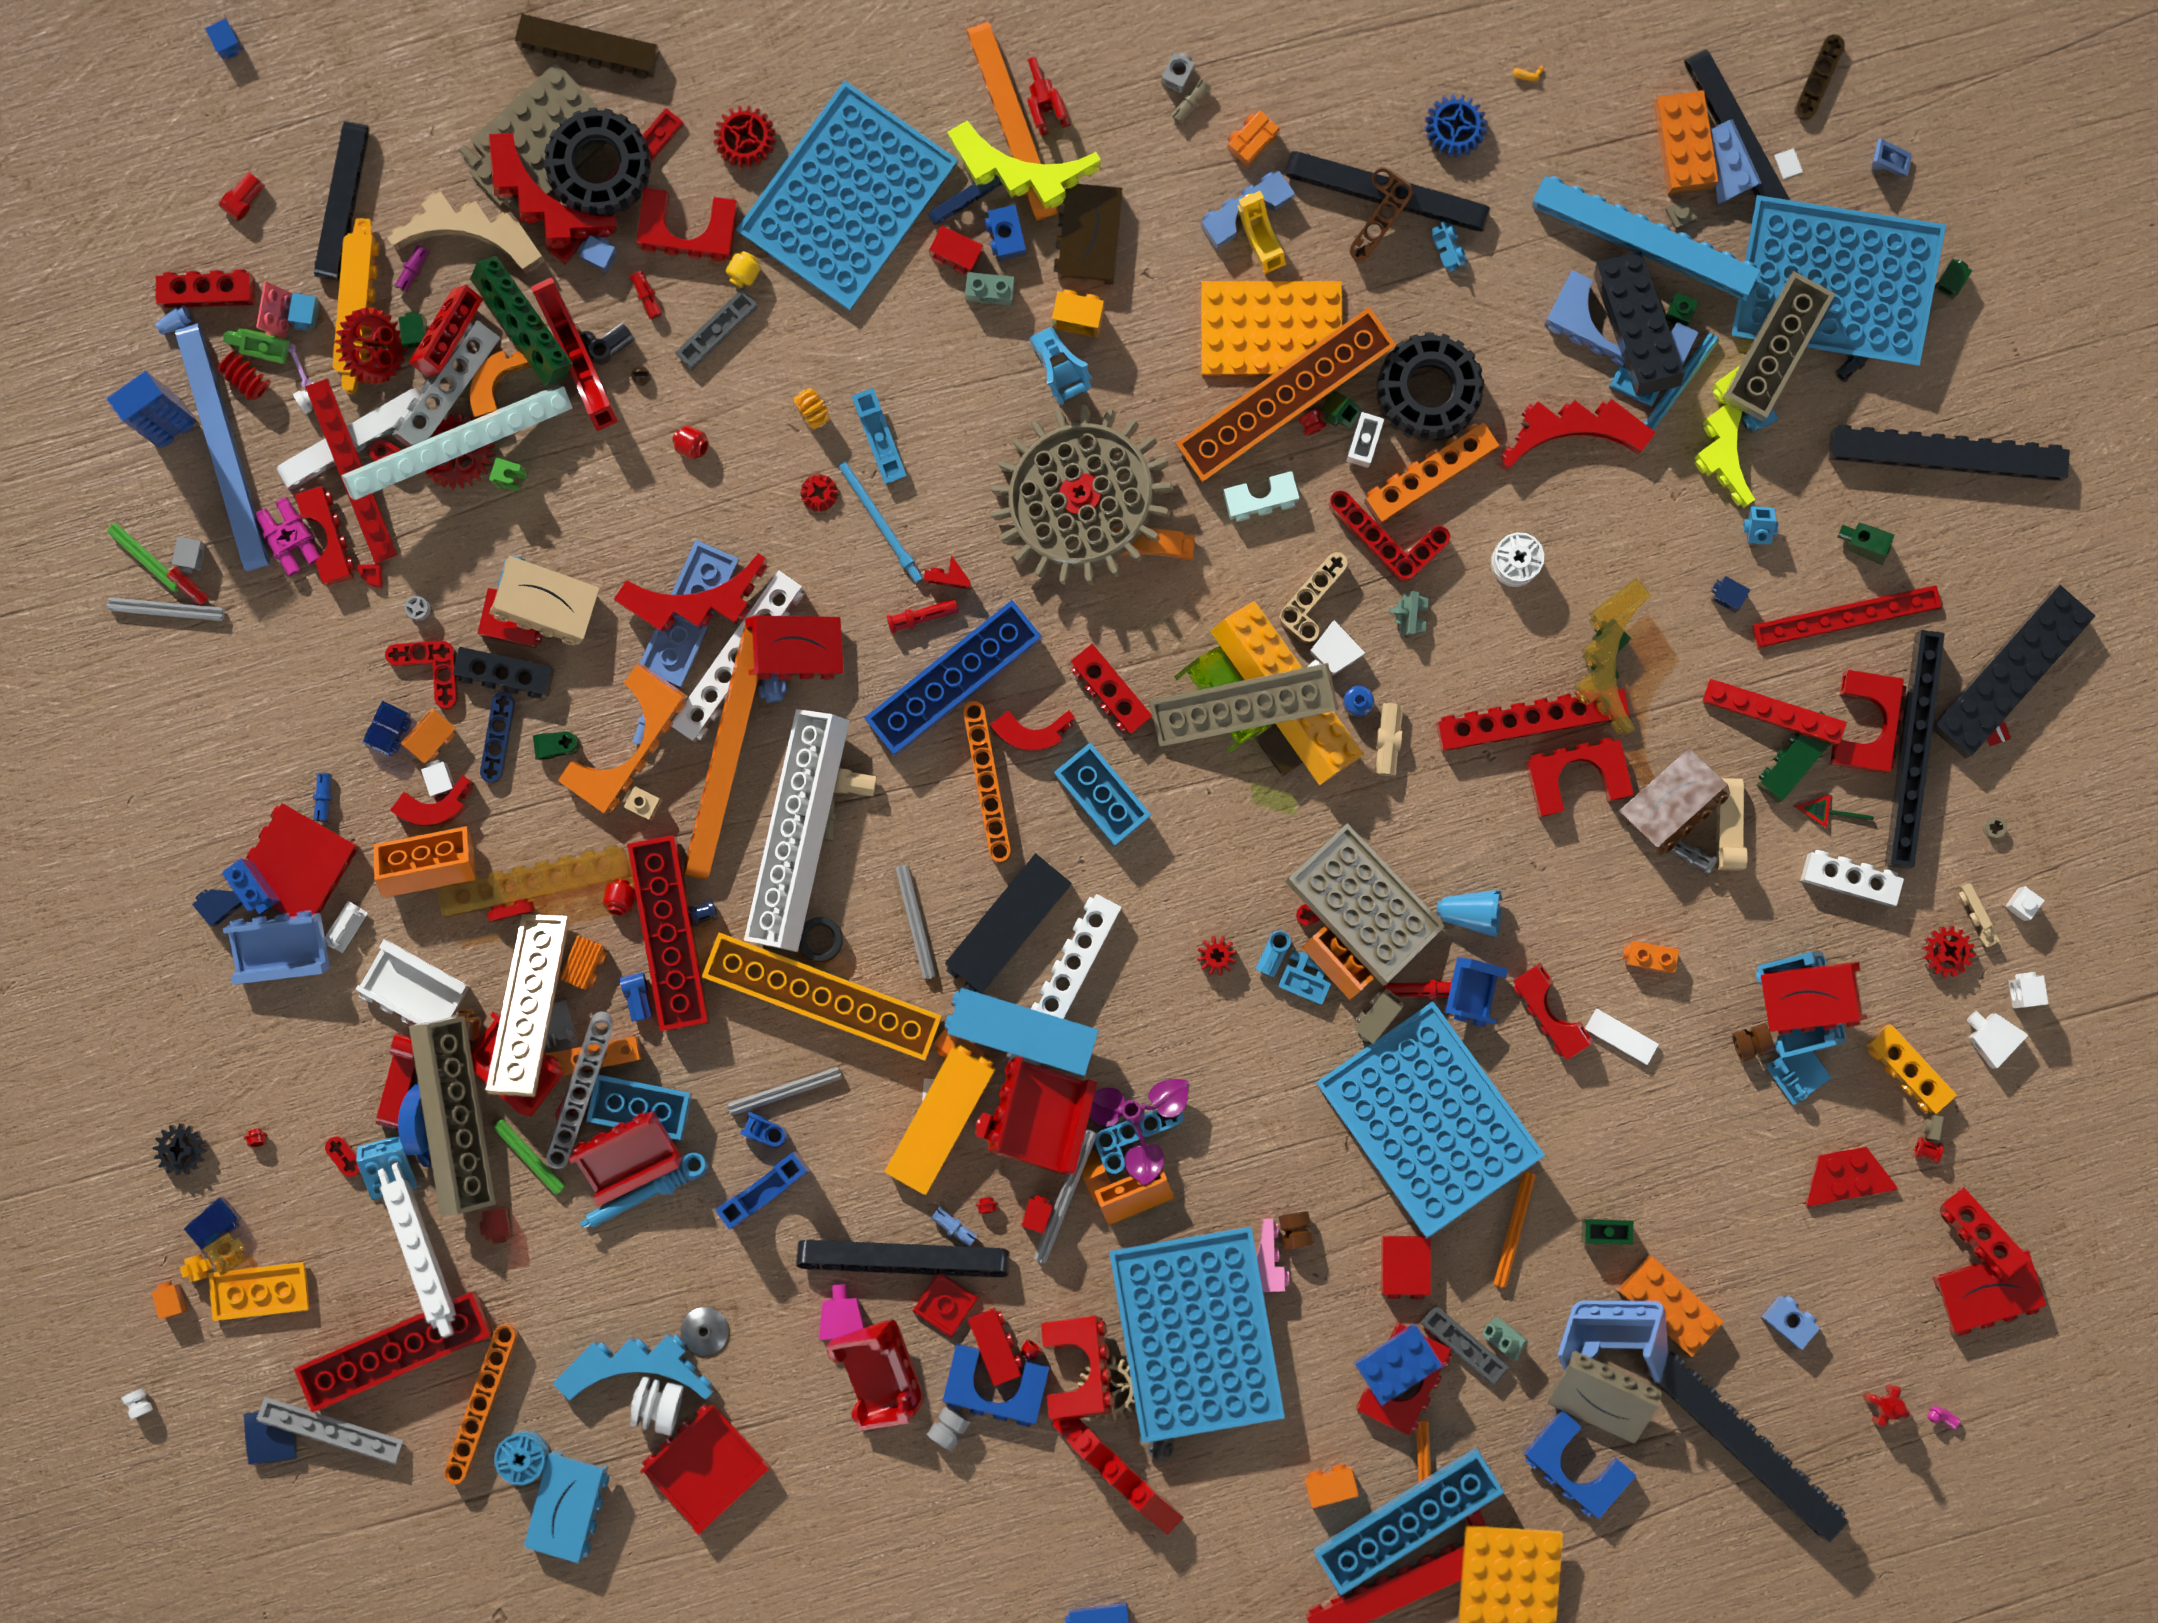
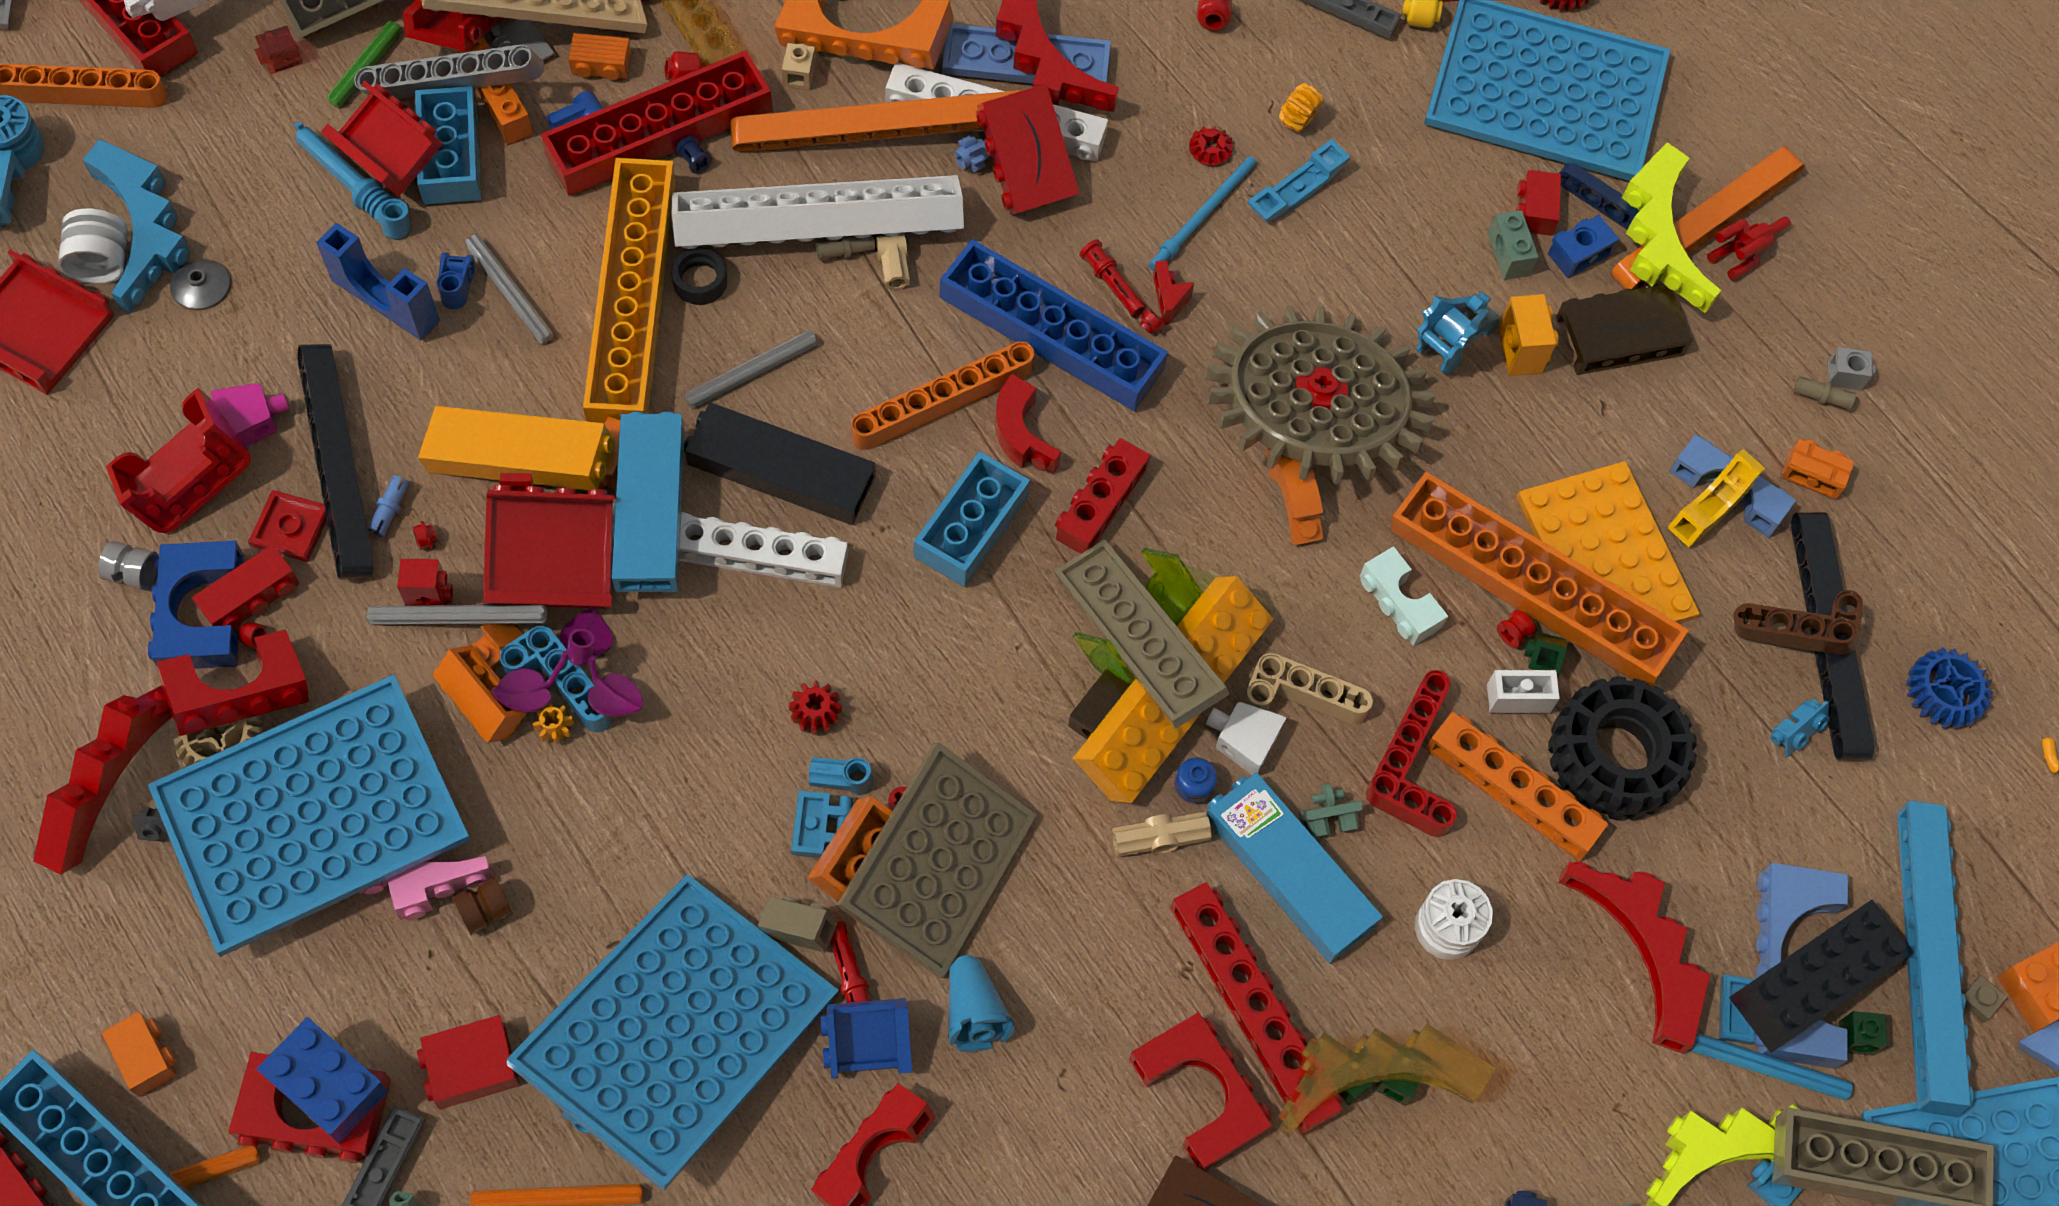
camera: 65 degrees right, 20 degrees down
(970, 599) = (1151, 322): none -> red plate
(1178, 1148) = (553, 731): none -> light orange gear
(1441, 656) = (1292, 867): none -> dark azure brick

